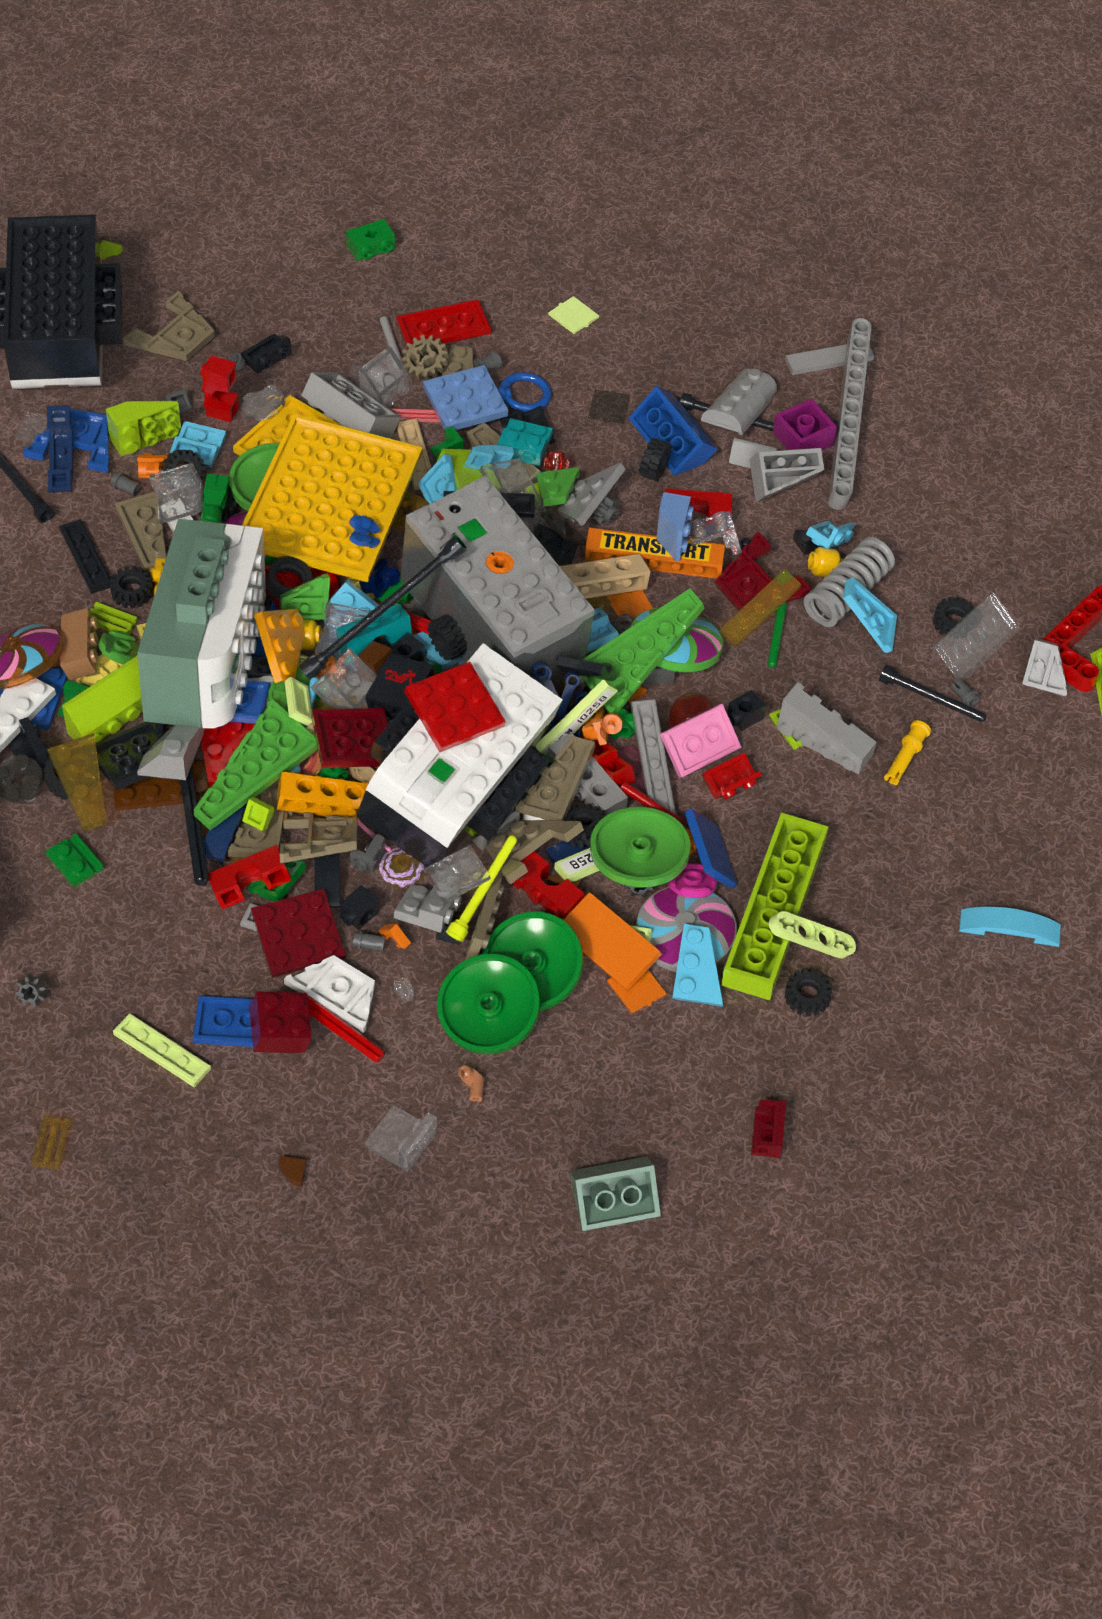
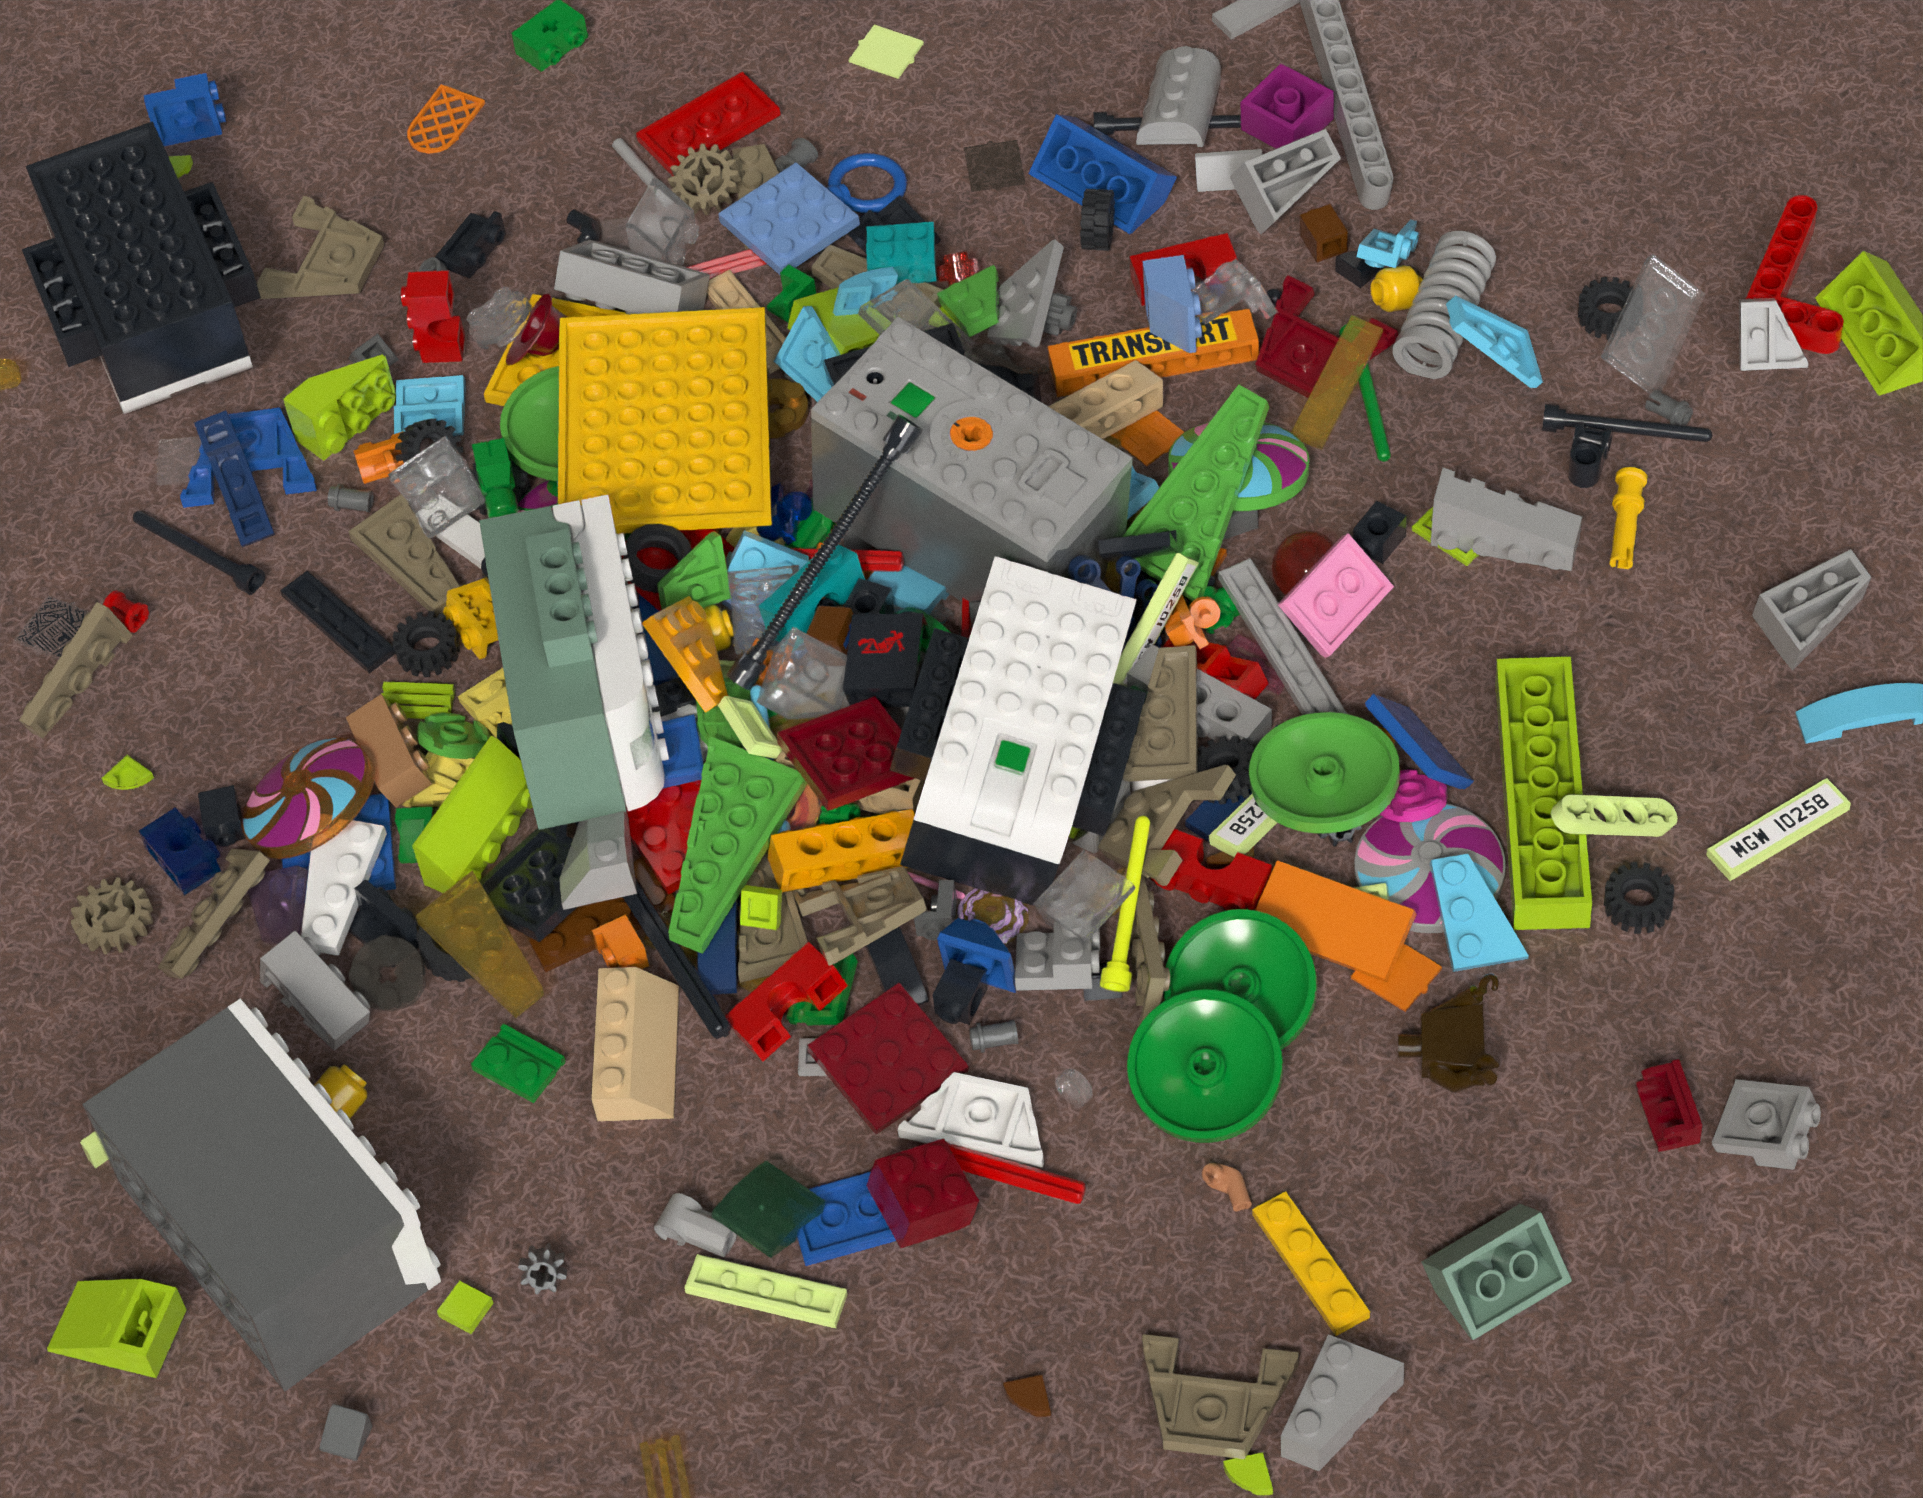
camera: 10 degrees left, 0 degrees up
(128, 216) = (186, 111): none -> blue plate
(133, 992) = (688, 1222): none -> light grey piece
(147, 873) = (634, 1045): none -> tan slope
(166, 810) = (620, 944): none -> orange brick
(182, 1000) = (768, 1209): none -> clear green slope
(280, 419) = (539, 333): none -> dark red piece
(310, 268) = (479, 103): none -> orange window
(342, 364) = (586, 225): none -> black arm
(363, 526) = (732, 448): blue piece -> none
(380, 882) = (978, 946): none -> blue slope
(395, 933) = (1026, 1011): orange tile -> none
(399, 1219) = (1213, 1413): none -> dark tan wing
(402, 1137) = (1163, 1296): clear bracket -> none
(407, 1265) = (1250, 1473): none -> lime tile
(447, 637) = (920, 566): black tyre -> none
(454, 706) = (996, 659): red plate -> none
(477, 1238) = (1337, 1399): none -> light grey wedge
(502, 1149) = (1311, 1263): none -> yellow plate
(622, 627) = (1155, 471): dark grey hinge -> none
(647, 801) = (1297, 705): red bar -> none
(650, 1041) = (1453, 1041): none -> dark brown torso
(729, 776) = (1398, 632): red bracket -> none
(794, 513) = (1323, 233): none -> reddish brown brick
(826, 1160) = (1767, 1123): none -> light grey plate
(900, 705) = (1588, 455): none -> black piece
(917, 979) = (1778, 829): none -> tile
(998, 845) = (1810, 606): none -> light grey wedge

